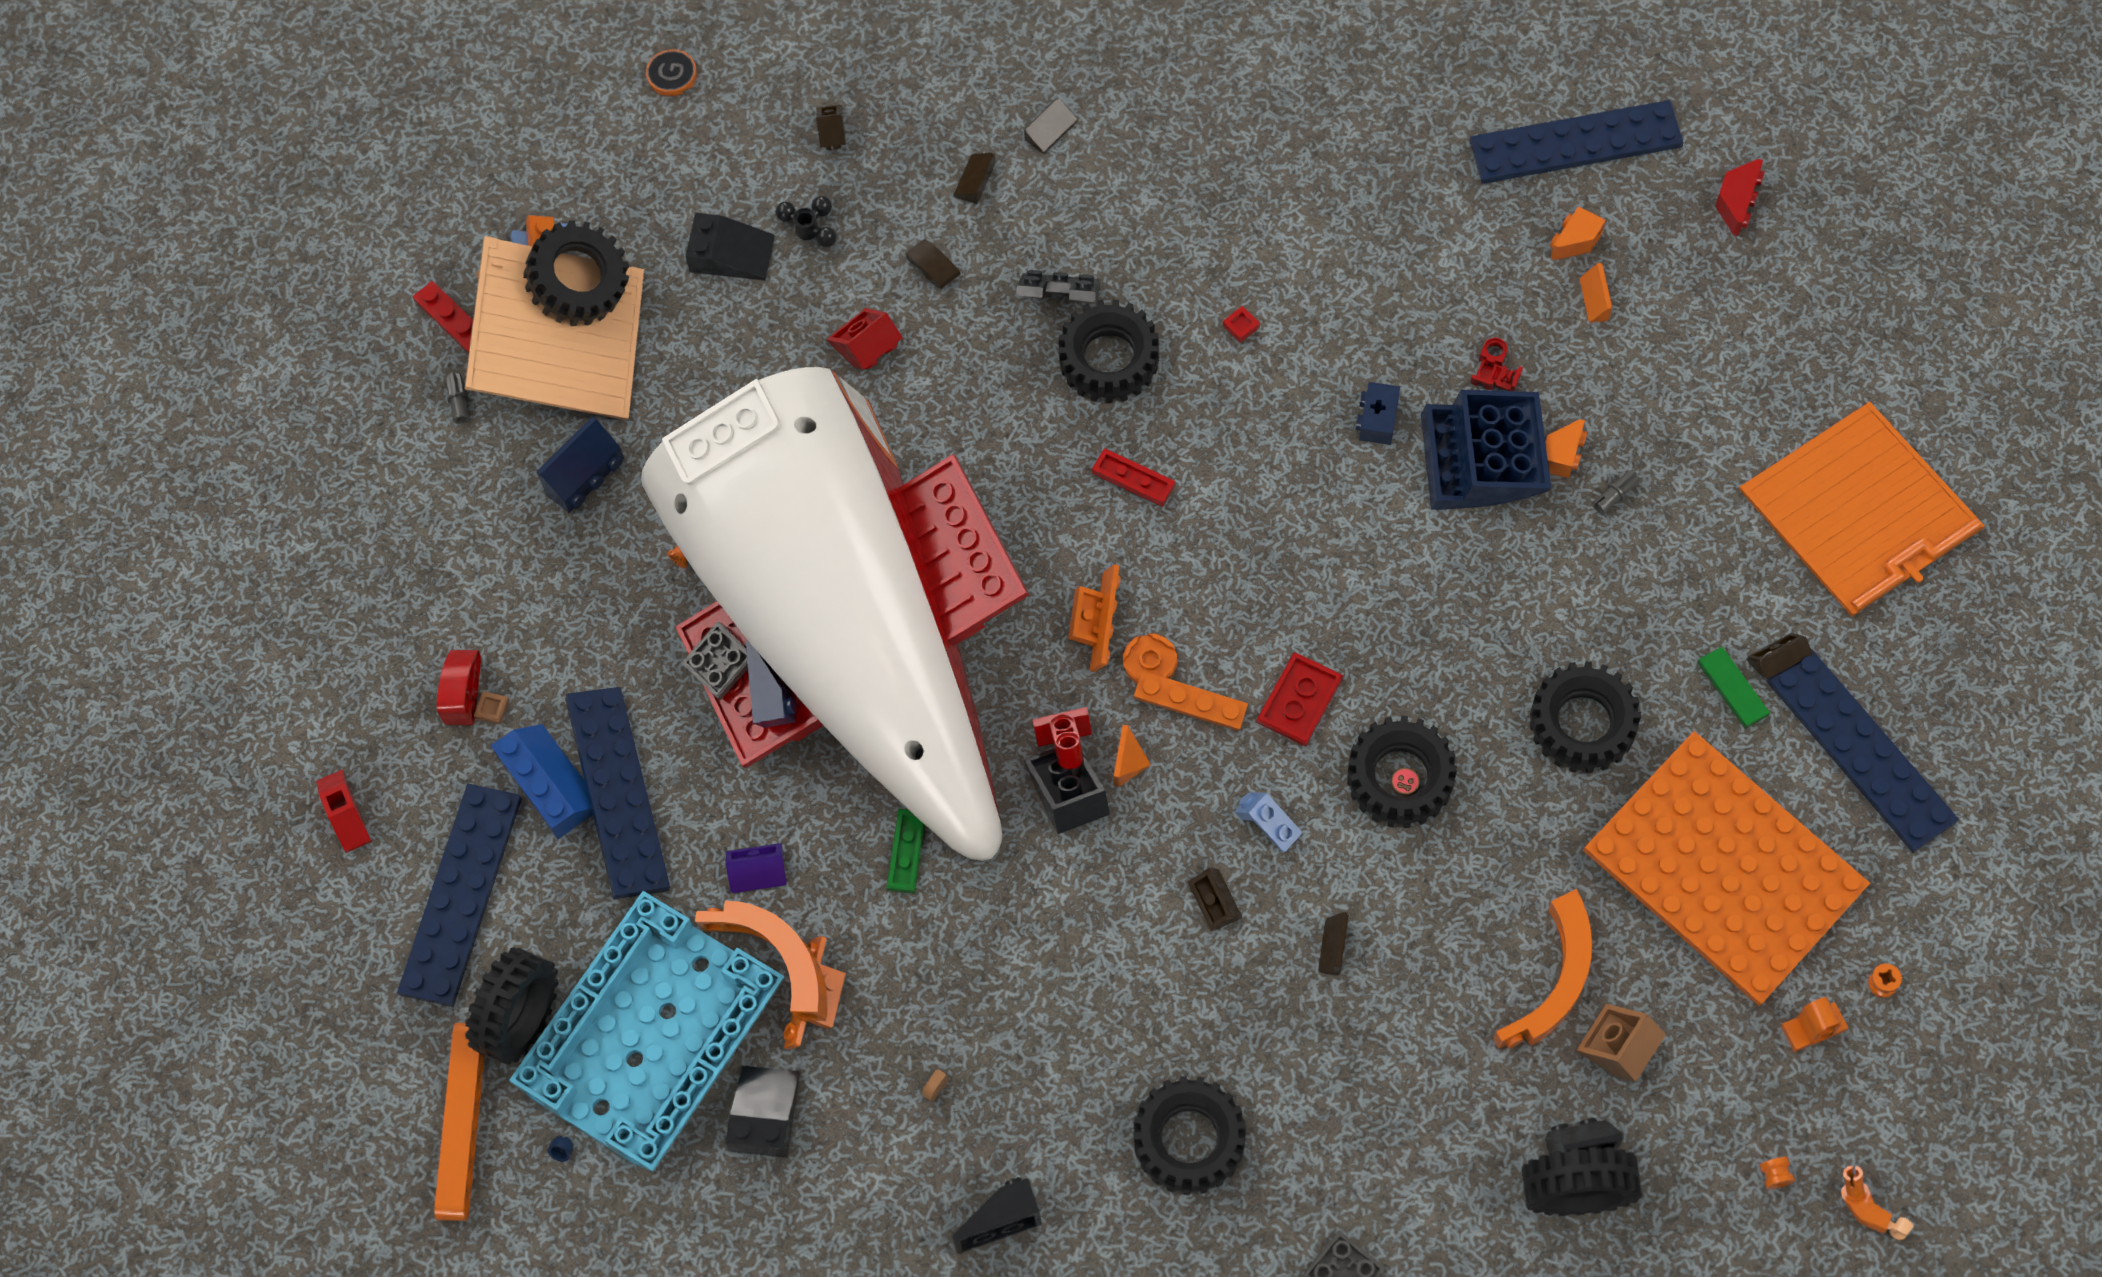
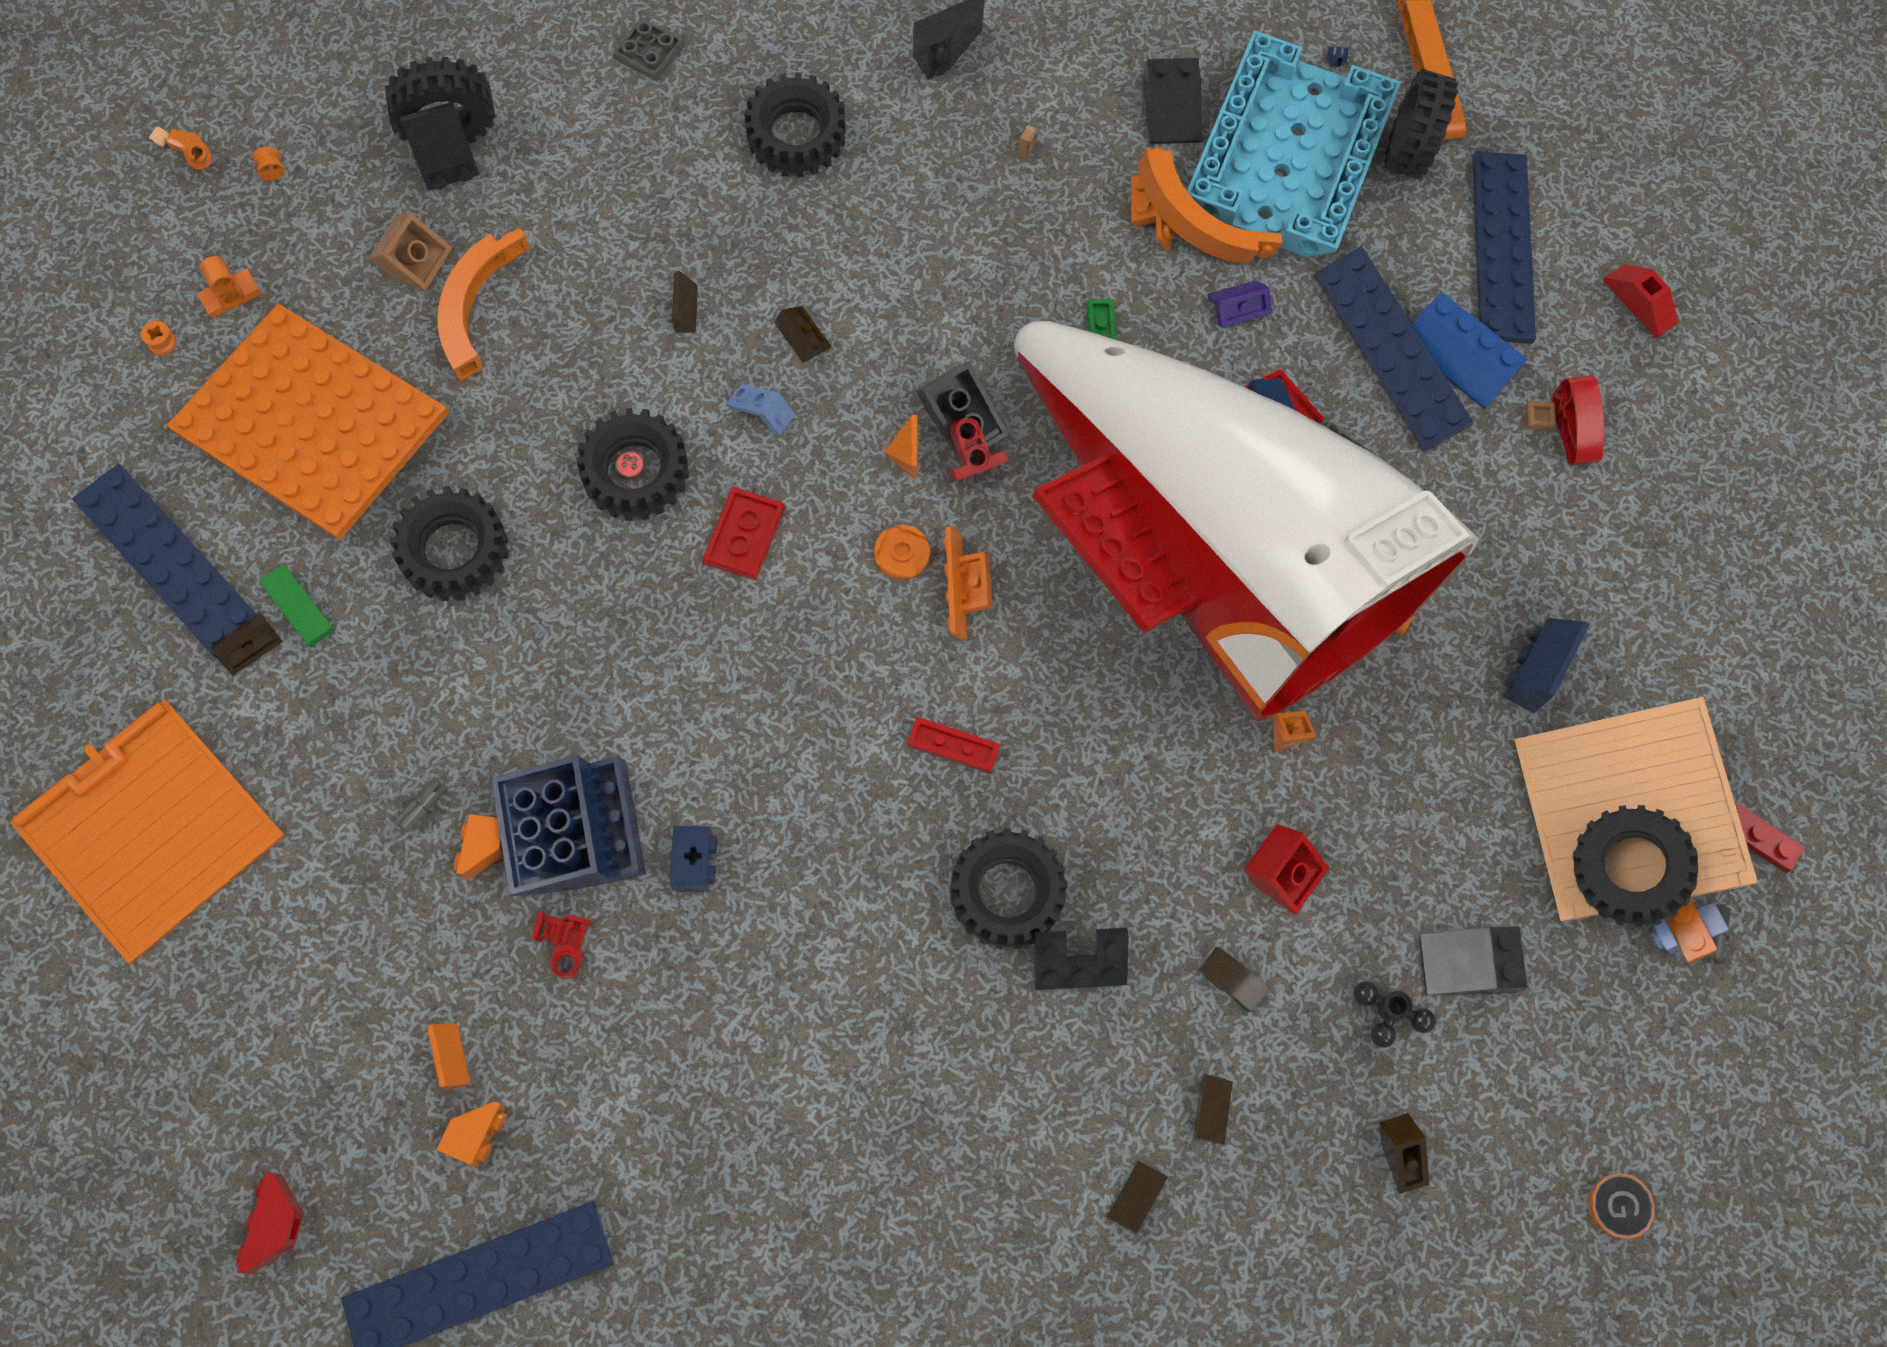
camera: 160 degrees right, 5 degrees up
(1190, 701) = (854, 511): orange plate -> none
(1241, 324) = (862, 952): red plate -> none

